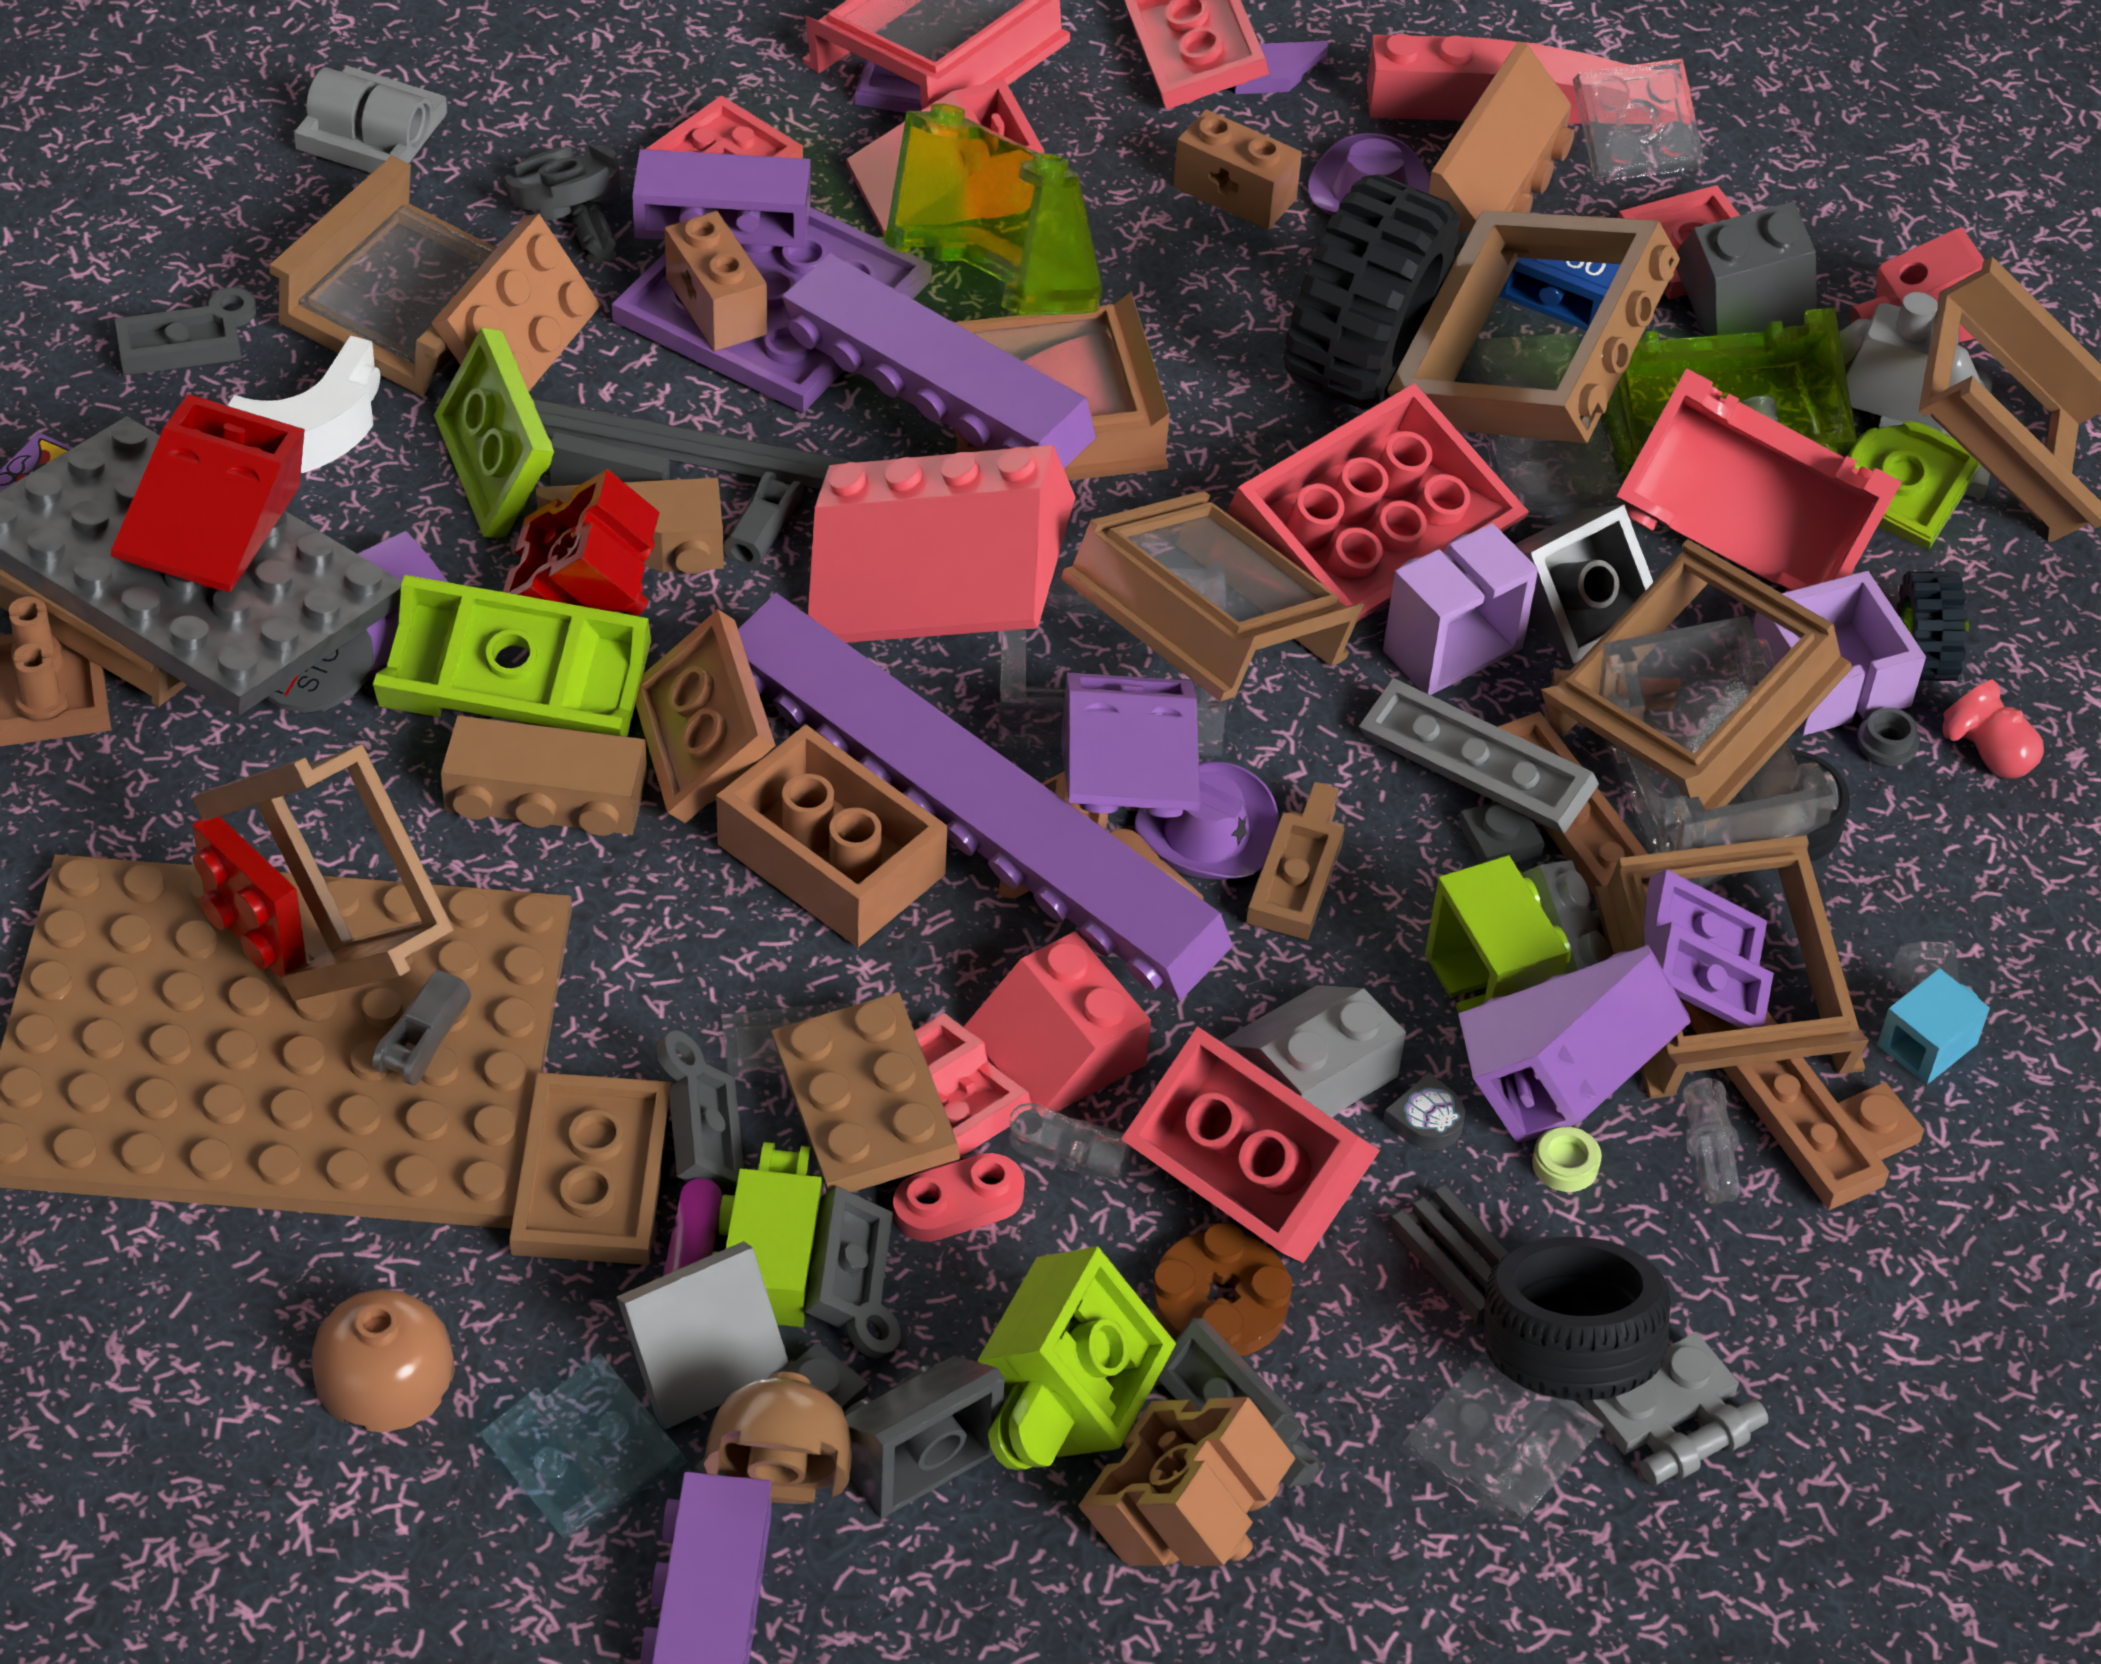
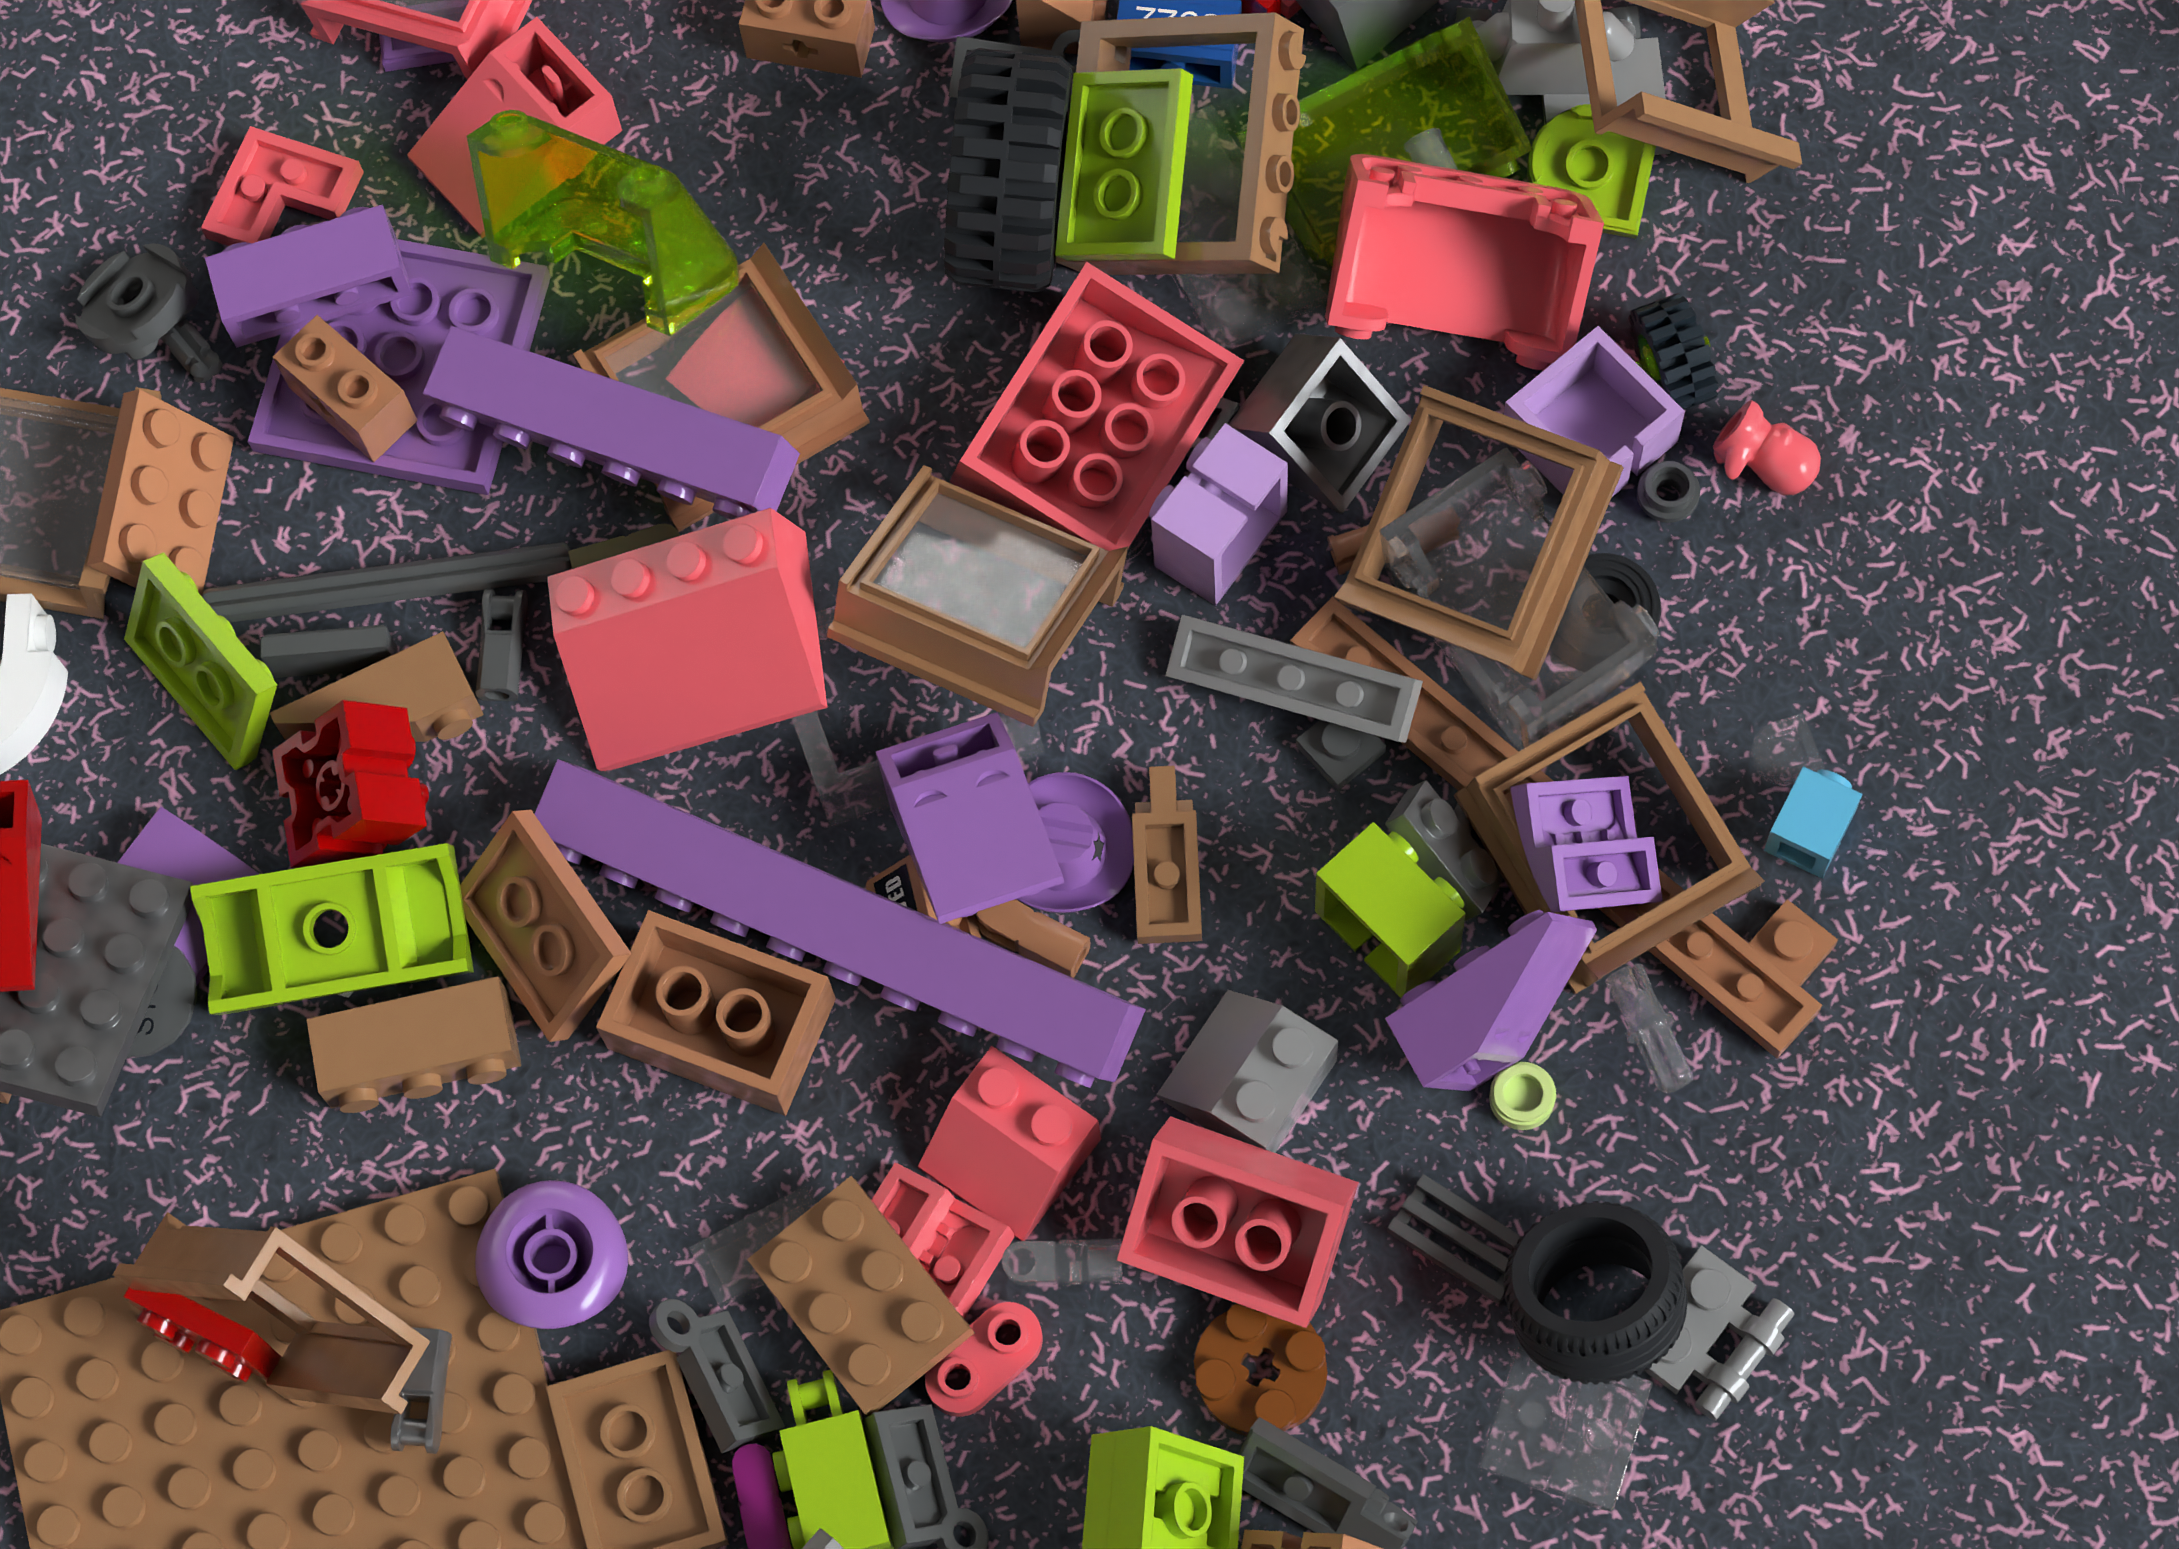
camera: 10 degrees left, 20 degrees up
(592, 970) = (551, 1255): none -> medium lavender hat
(1427, 1115) = (1381, 1097): tile -> none
(1478, 313) = (1124, 165): none -> lime plate

